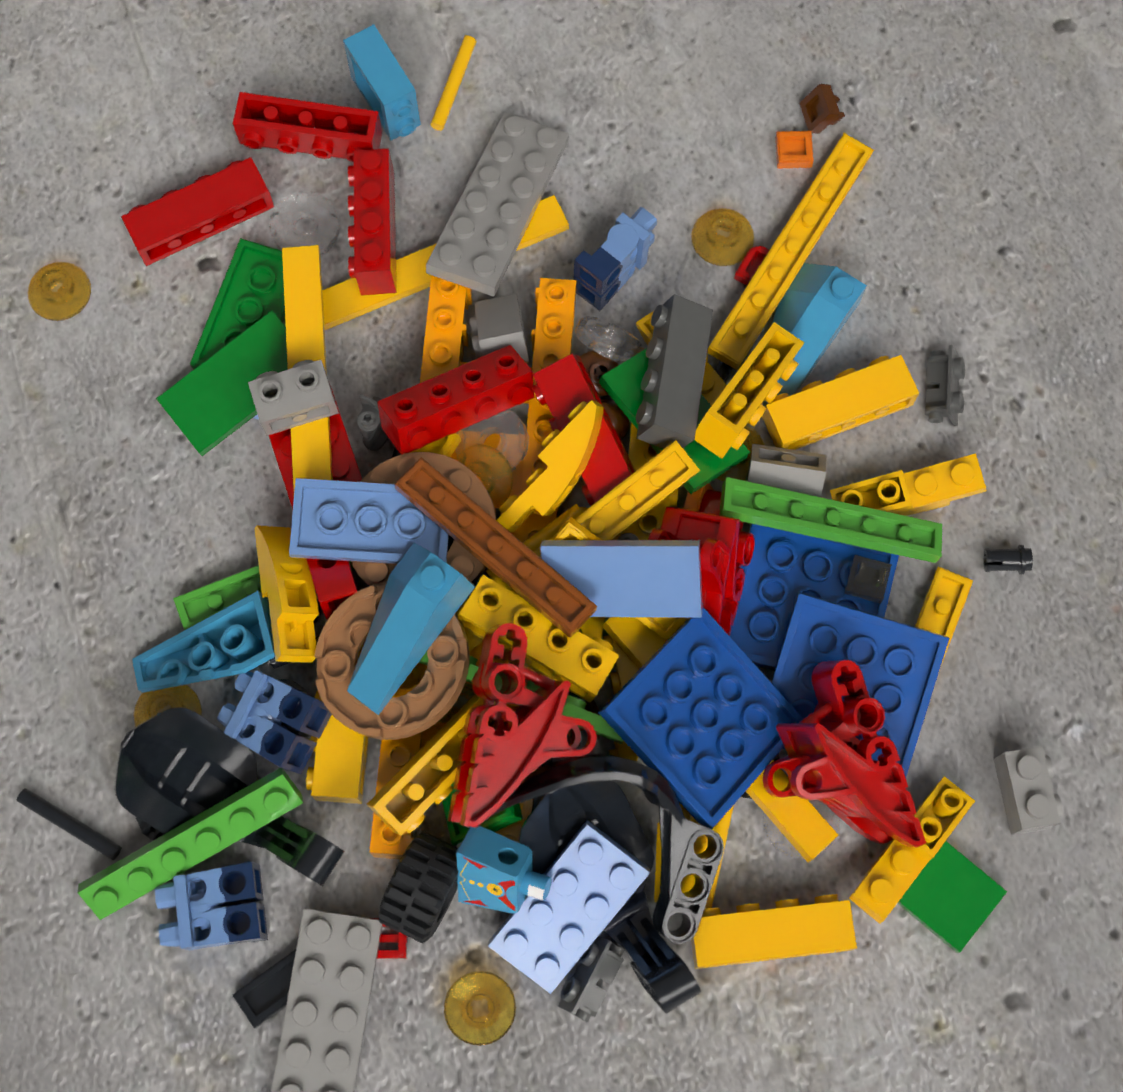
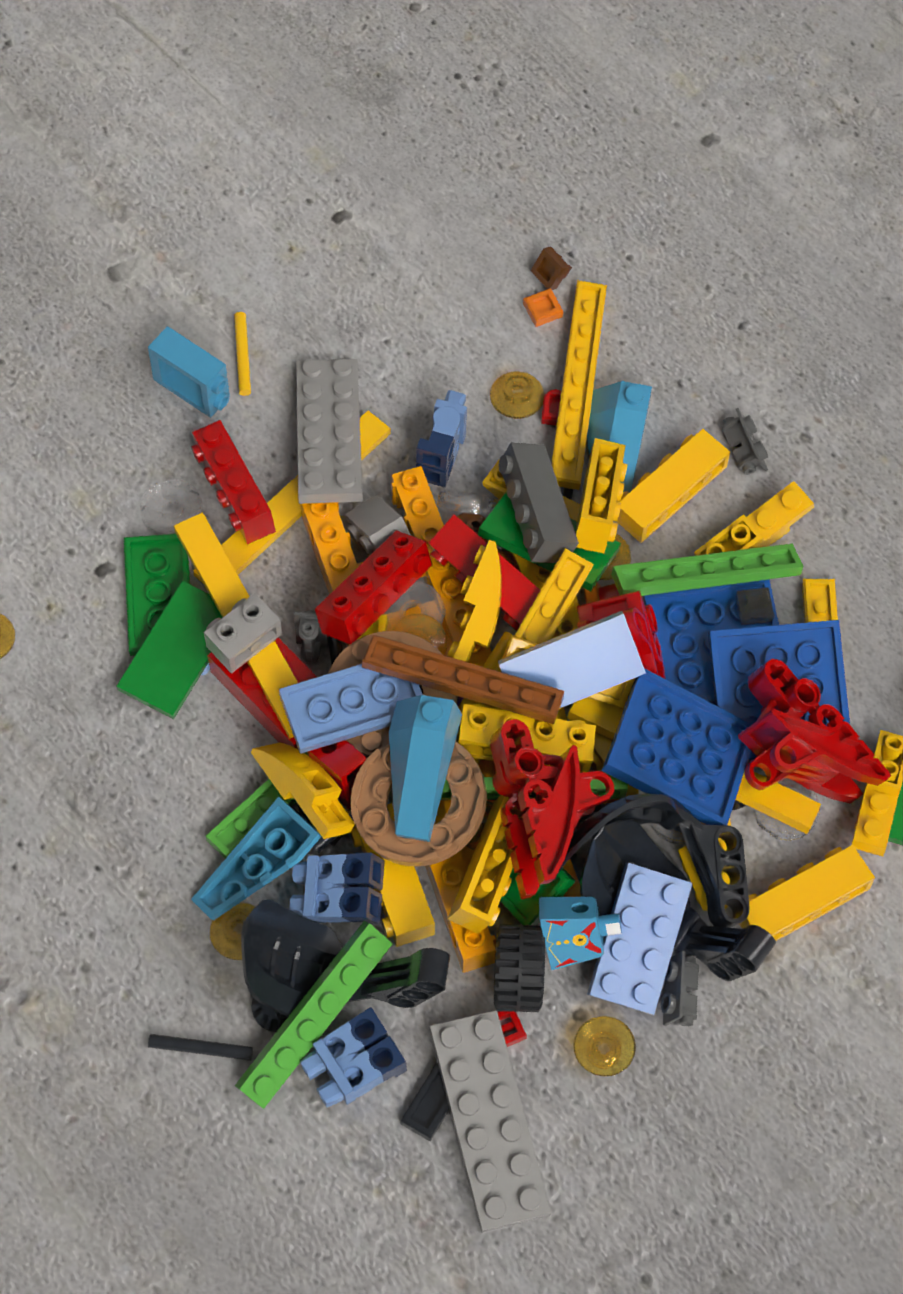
camera: 25 degrees left, 10 degrees down
(198, 211) = (80, 527): red brick -> none
(305, 126) = (140, 429): red brick -> none
(787, 469) = (654, 546): light grey brick -> none
(1008, 559) = (858, 551): black pin -> none

